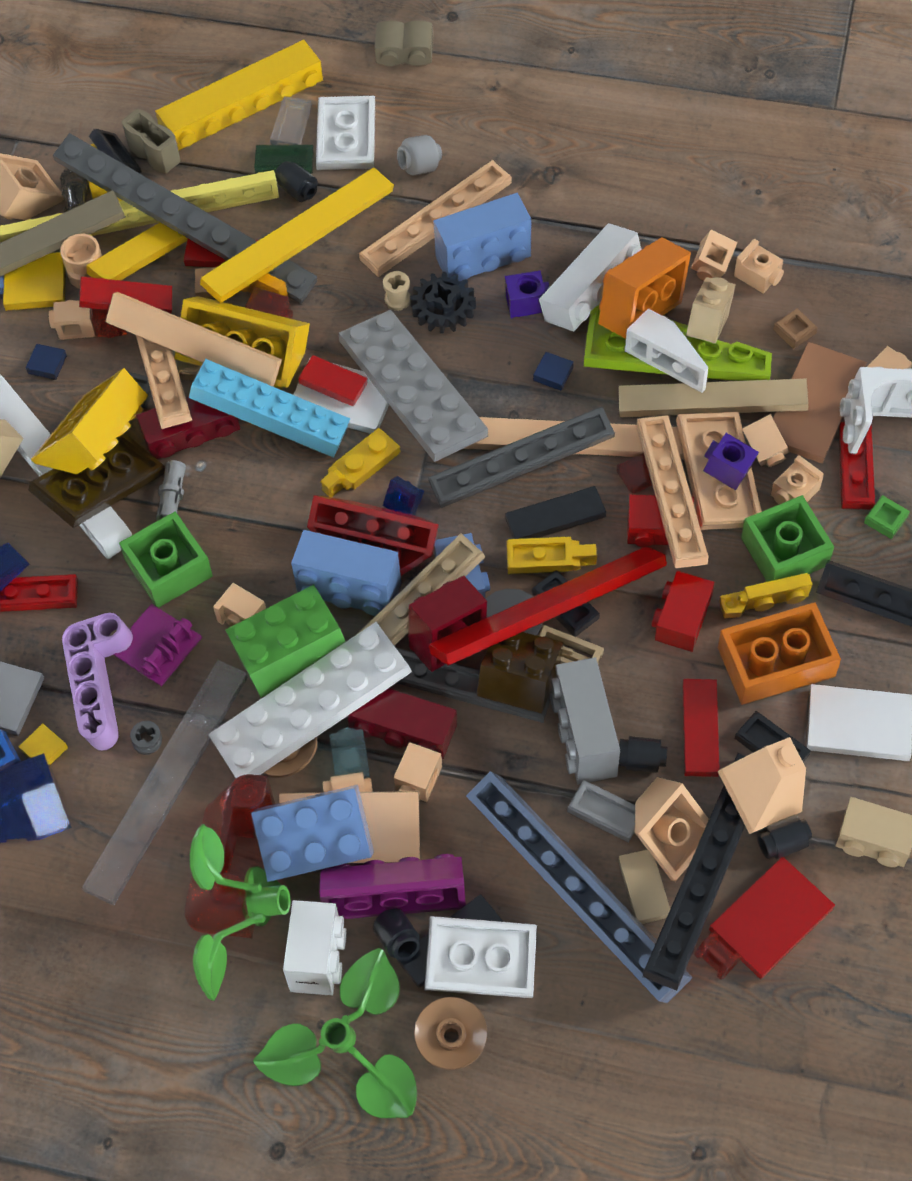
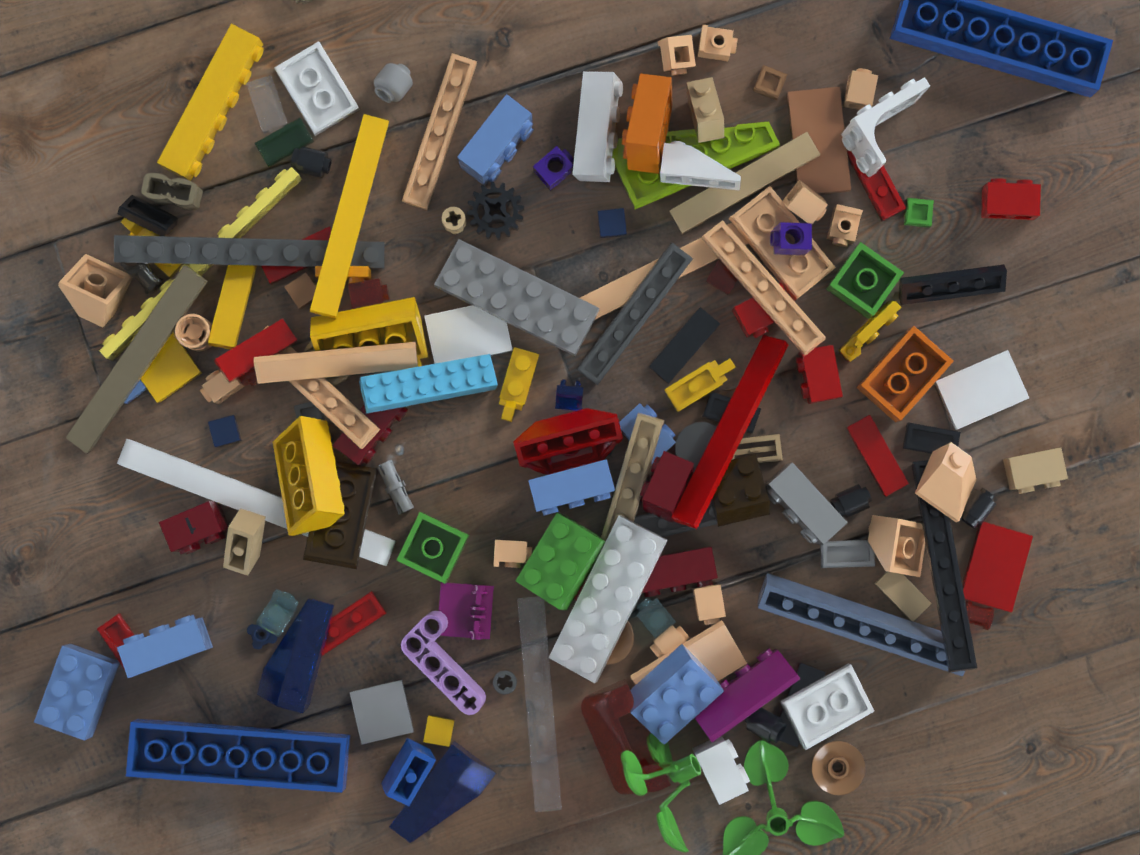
camera: 35 degrees left, 25 degrees up
(332, 380) = (456, 328): red tile -> none

